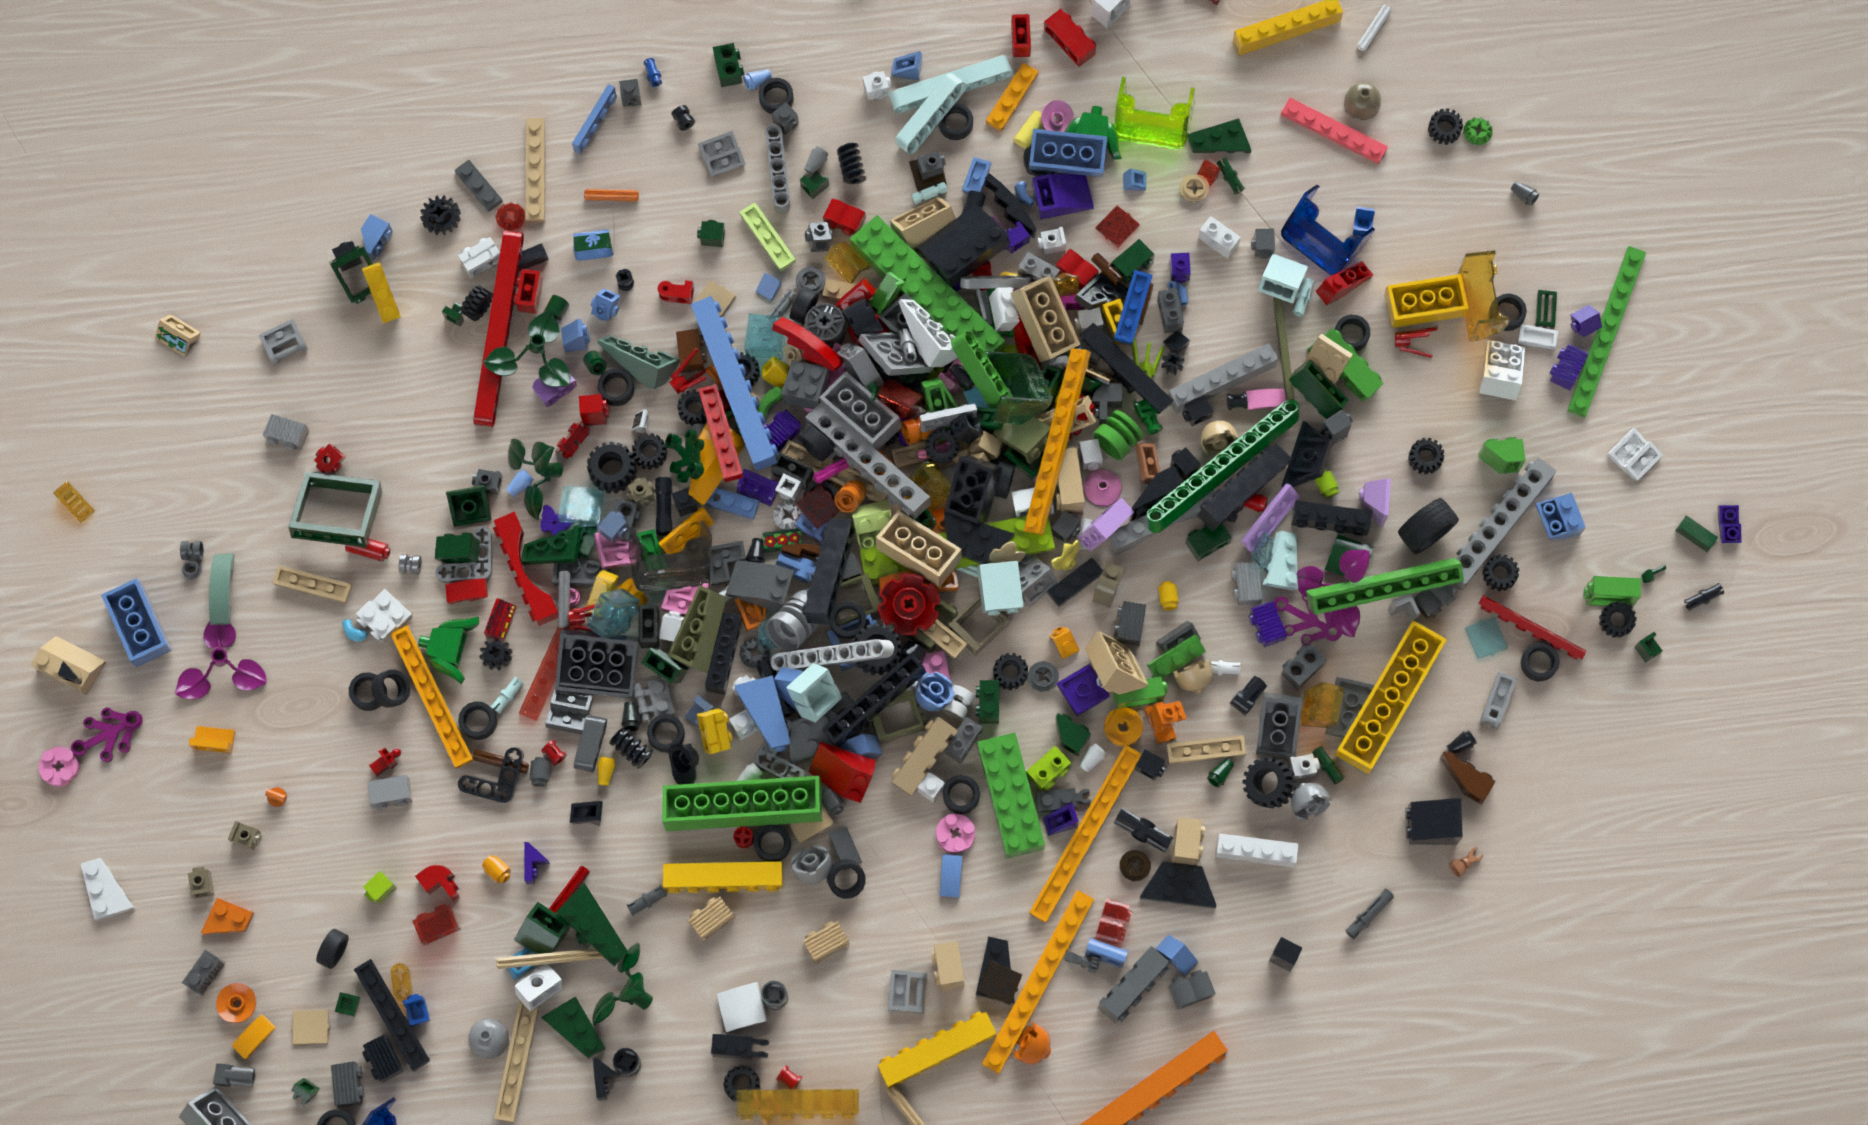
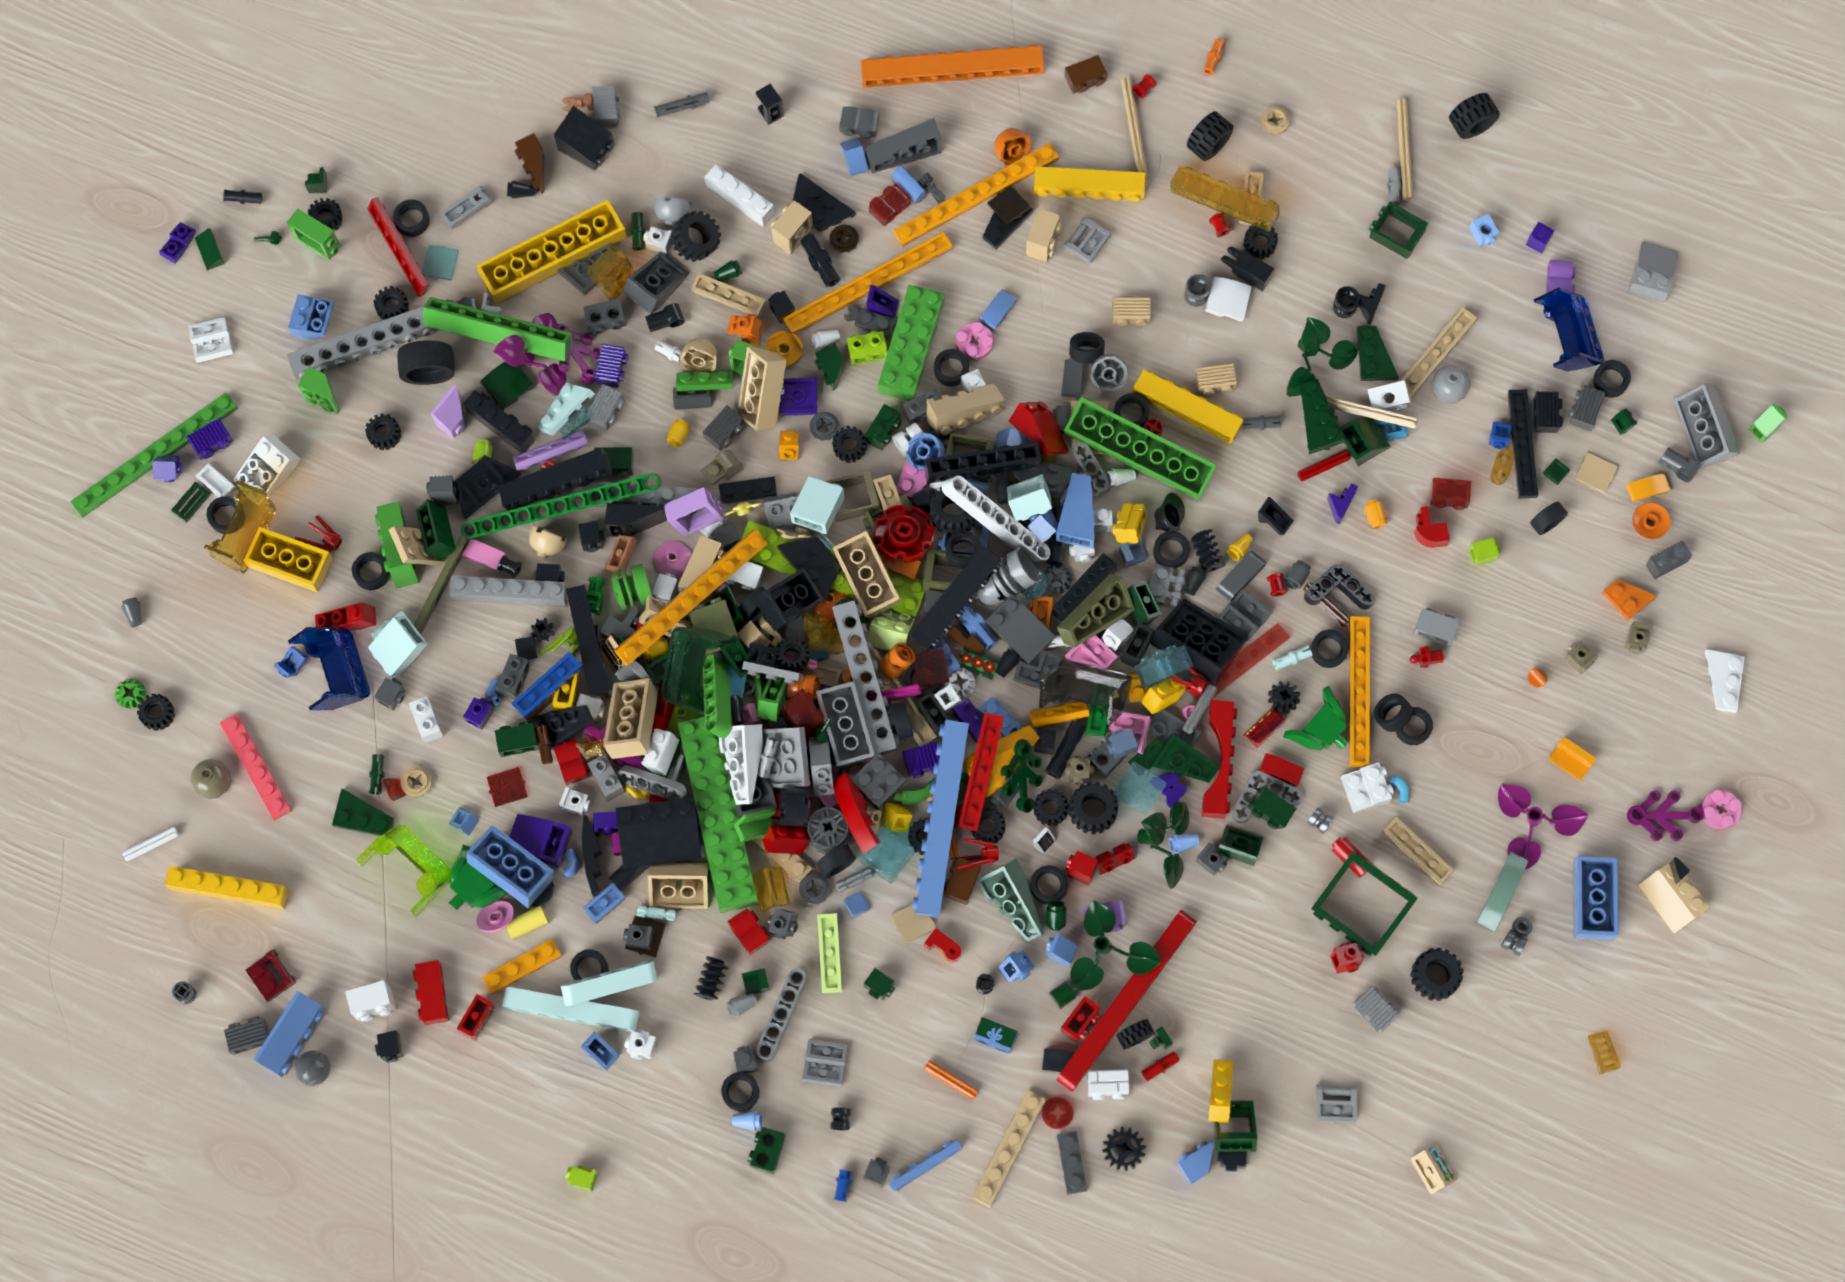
camera: 150 degrees left, 0 degrees up
(237, 475) = (1441, 958): none -> black tyre
(444, 294) = (1160, 1066): none -> red axle
(1438, 870) = (605, 105): none -> light grey brick

